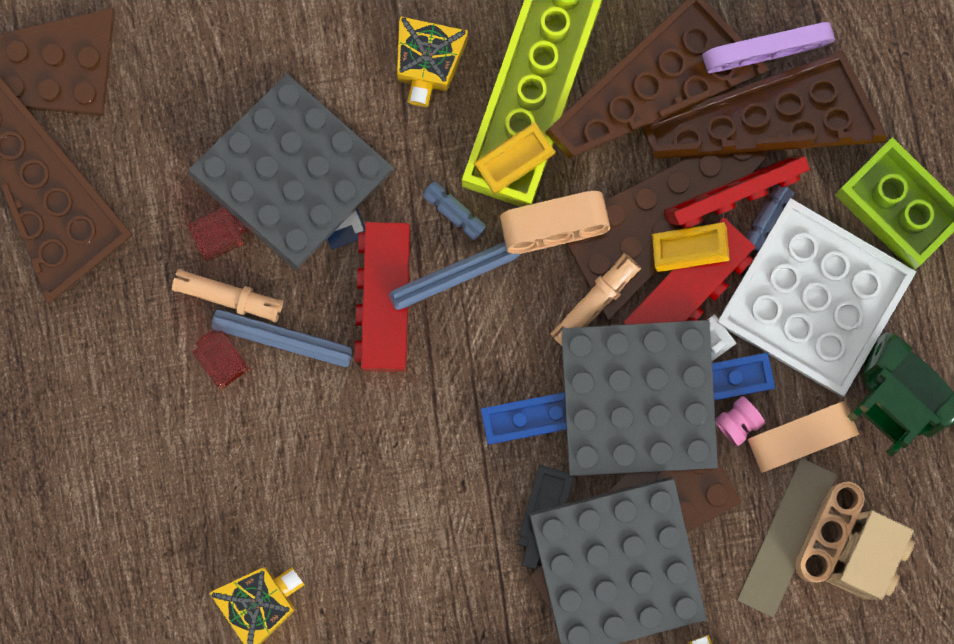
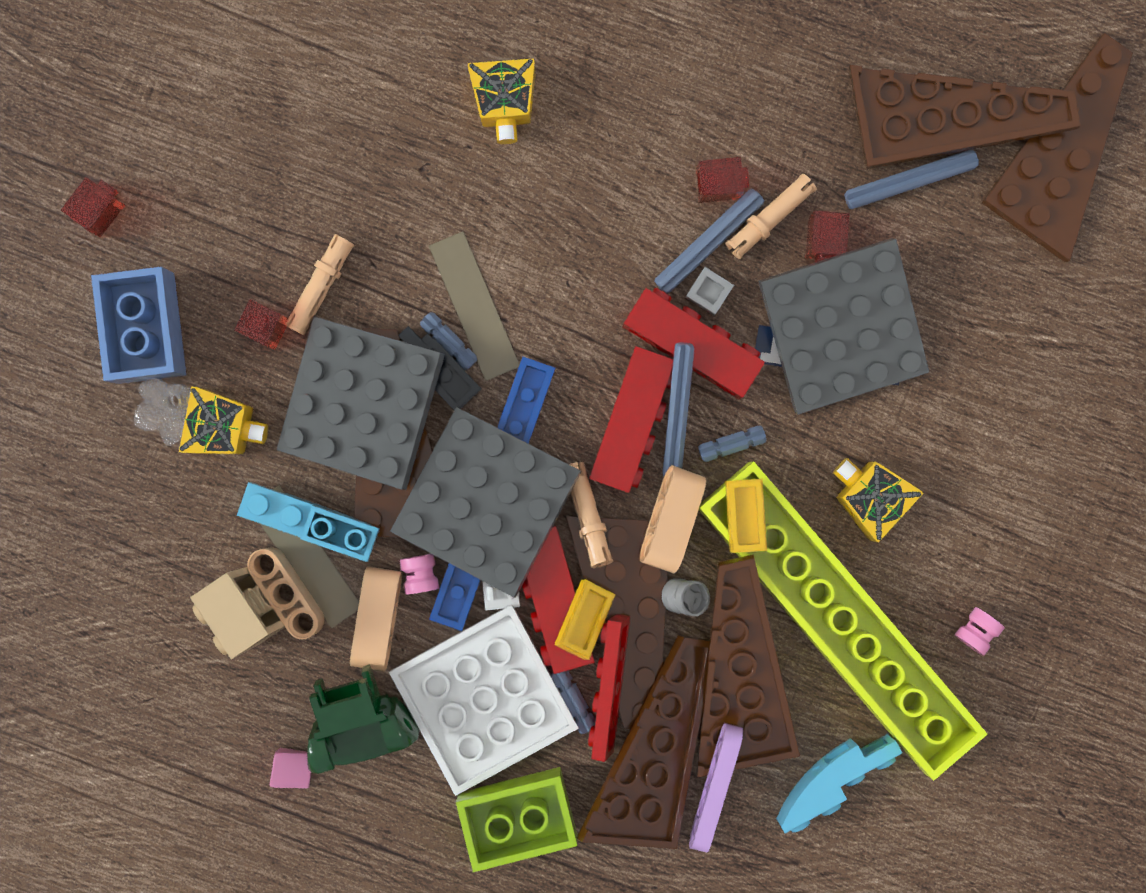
camera: 125 degrees right, 5 degrees up
(119, 189) = (911, 179): none -> sand blue axle
(328, 310) = (709, 291): none -> light grey plate
(466, 518) = (474, 306): none -> dark tan sticker
(487, 311) = (632, 420): none -> red brick
(512, 521) = (448, 340): none -> sand blue axle
(616, 171) = (685, 597): none -> light grey wheel
(752, 548) = (308, 521): none -> medium azure slope

